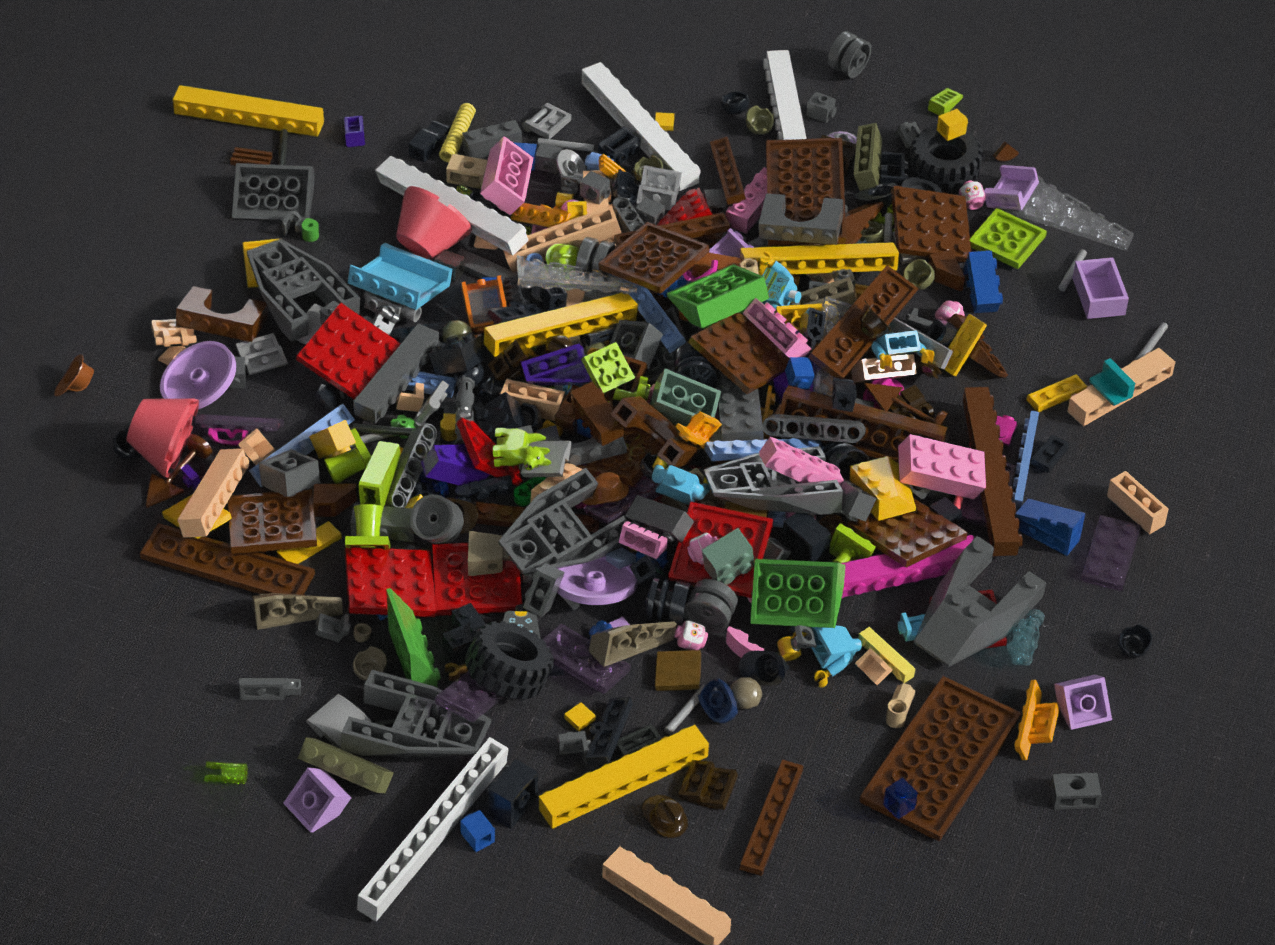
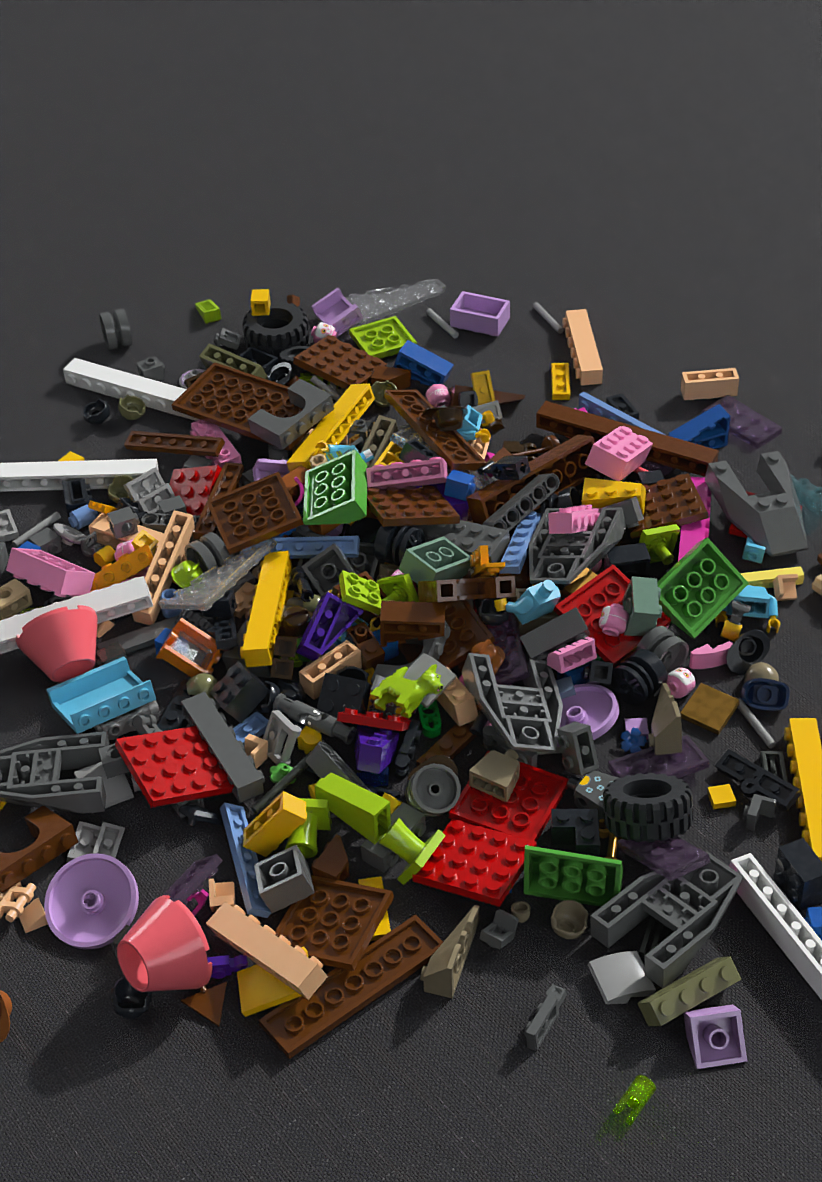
camera: 55 degrees left, 5 degrees down
(1113, 383) = (588, 341): teal panel -> none

